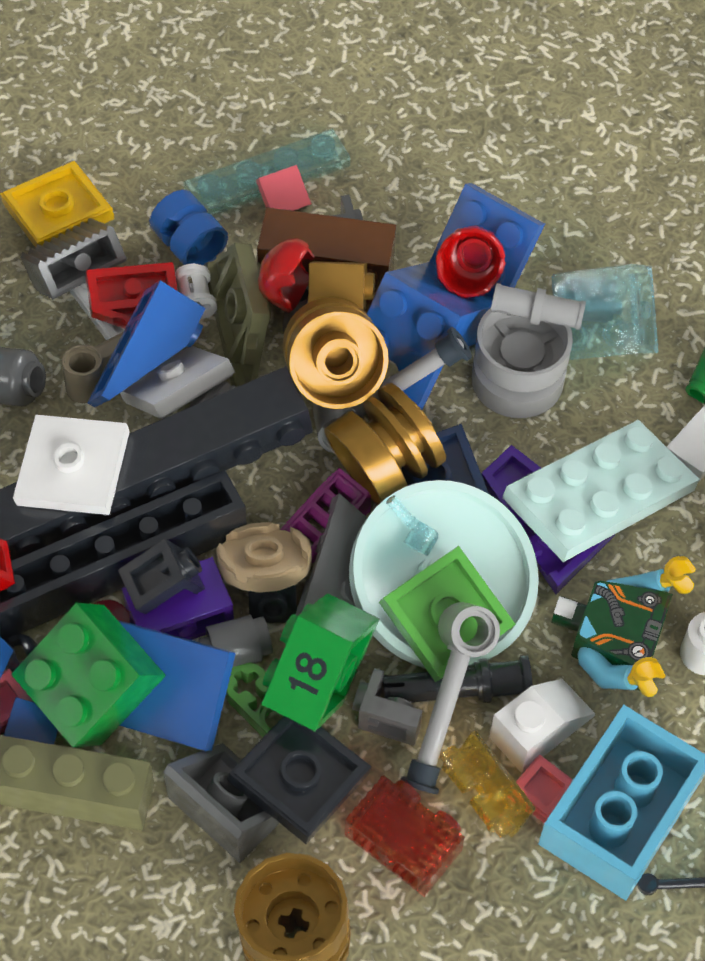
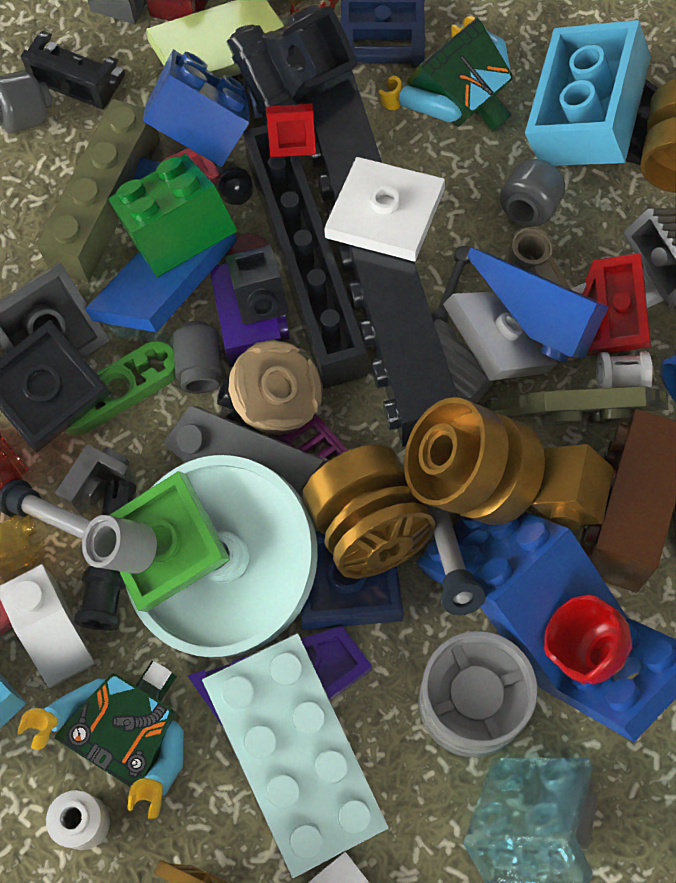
camera: 105 degrees right, 10 degrees up
(282, 274) = (590, 422): red hair -> none
(318, 660) = (135, 407): green brick -> none
(421, 536) = (258, 530): clear light blue hand -> none
(538, 306) = (510, 706): light grey pin -> none

